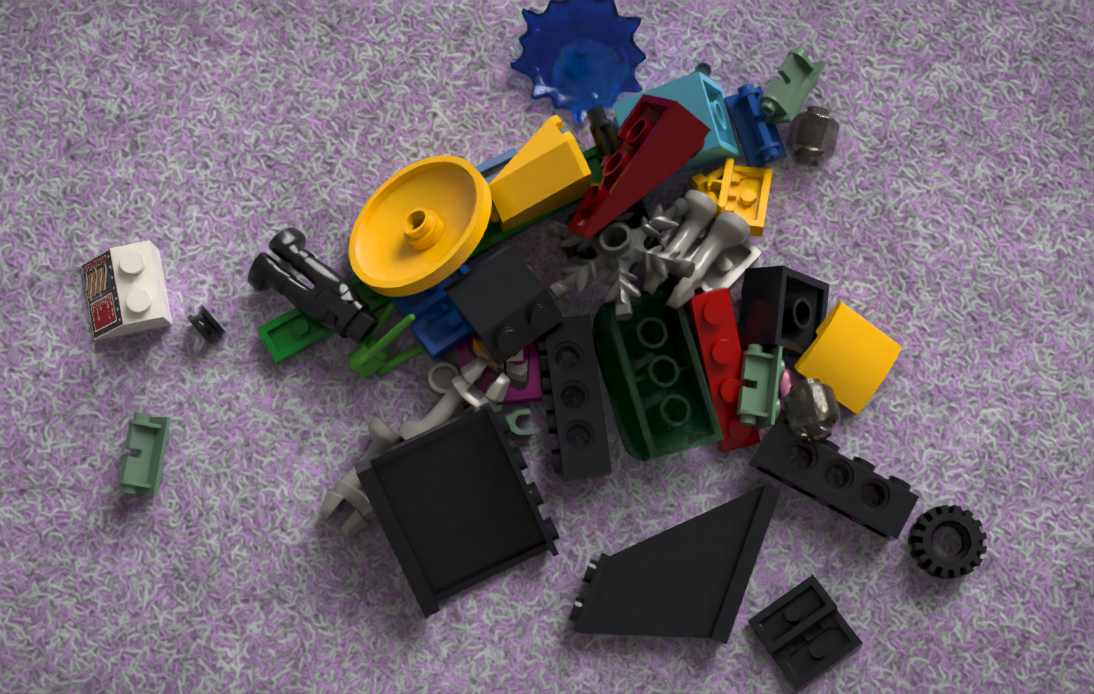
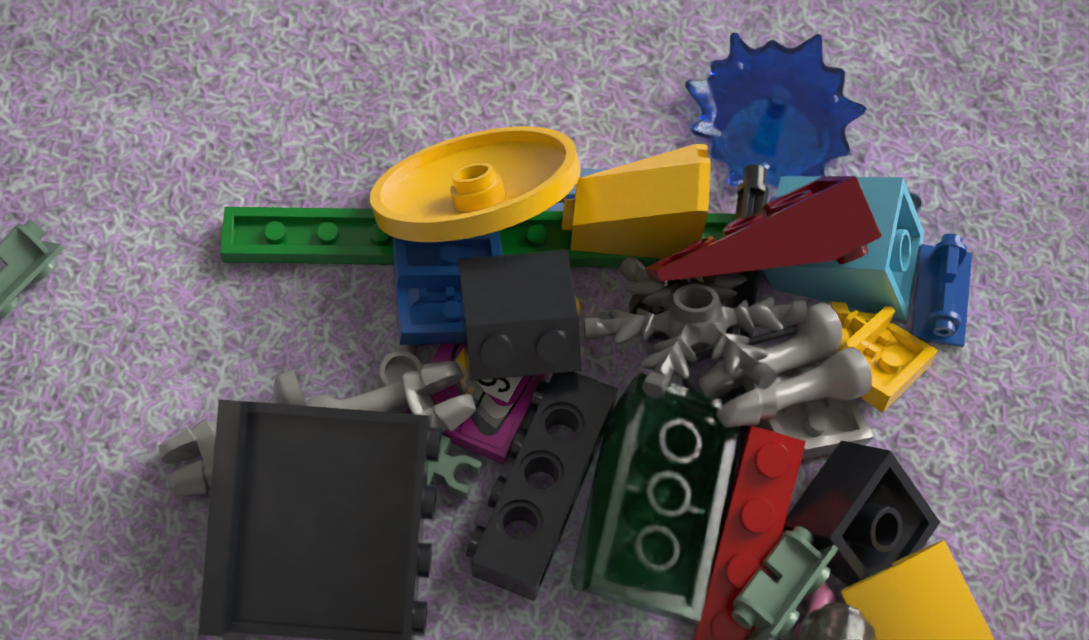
camera: 30 degrees right, 15 degrees down
(126, 290) = (115, 97): white slope -> none
(206, 324) = (172, 175): black bush -> none
(331, 301) = (320, 218): black piece -> none
(373, 354) = (336, 301): bright green plant -> none
(784, 100) = (992, 275): sand green hinge -> none
(812, 136) = (1008, 338): clear smoke head -> none

